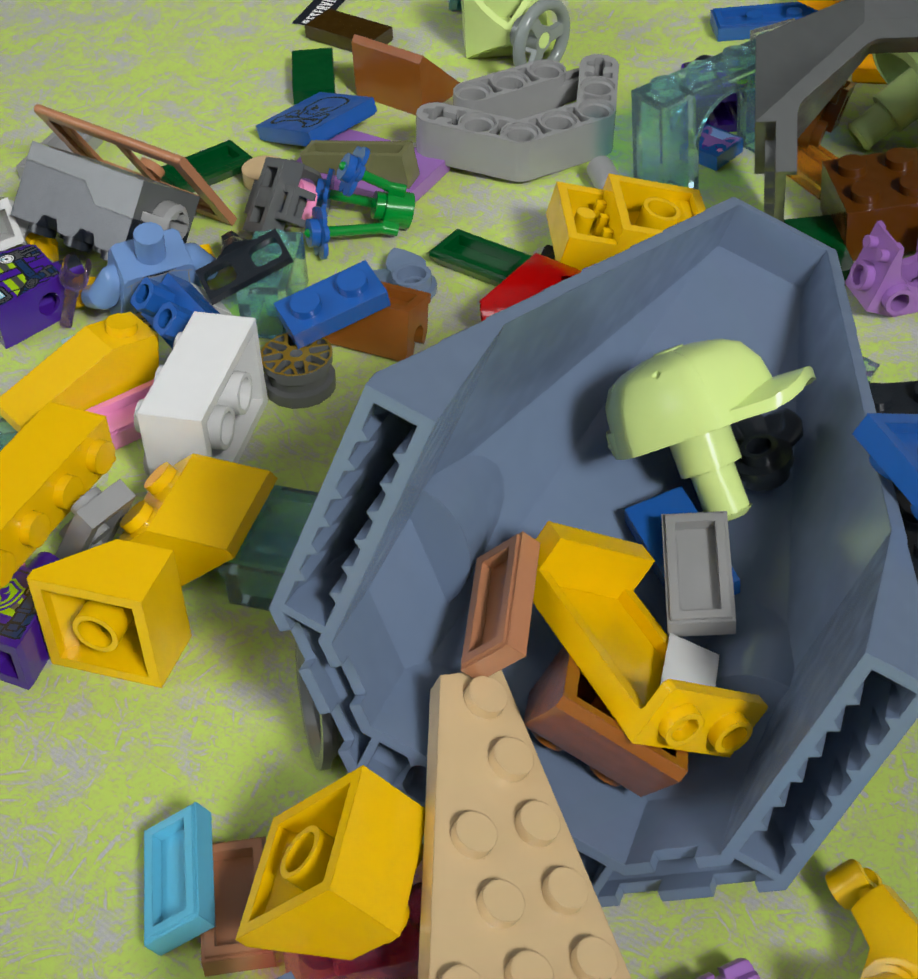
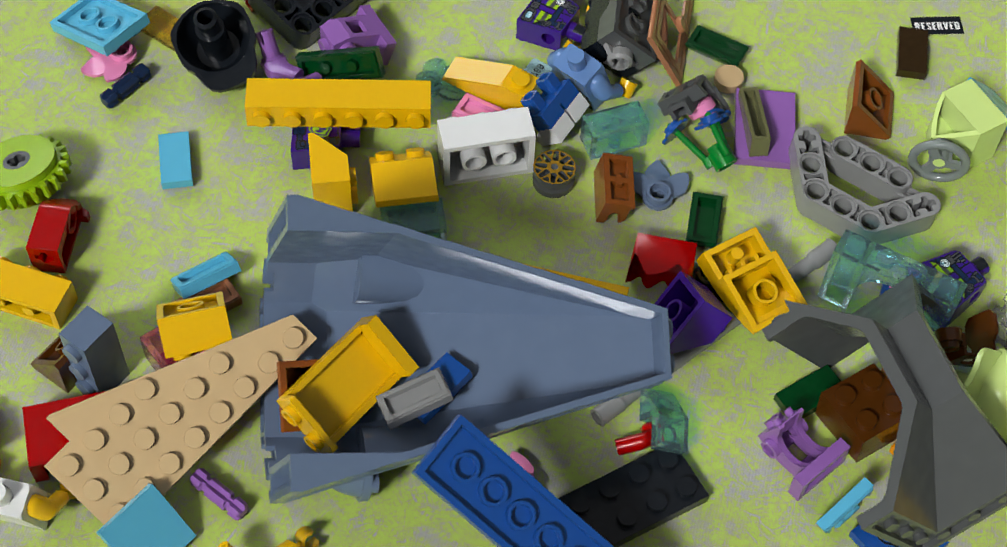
camera: 60 degrees right, 15 degrees up
(73, 284) = (561, 39): clear purple hand -> none
(95, 518) = (379, 140): light grey plate -> none
(237, 253) = (604, 101): black piece -> none
(312, 73) = (843, 57): dark green tile -> none
(317, 118) = (792, 79): blue tile -> none
(332, 304) = (590, 164): blue plate -> none
(500, 606) = (332, 319): nougat tile -> none
(688, 402) = (490, 352): yellowish green piece -> none
(689, 662) = (349, 415): white sticker -> none
(767, 448) = (512, 390): black plate -> none

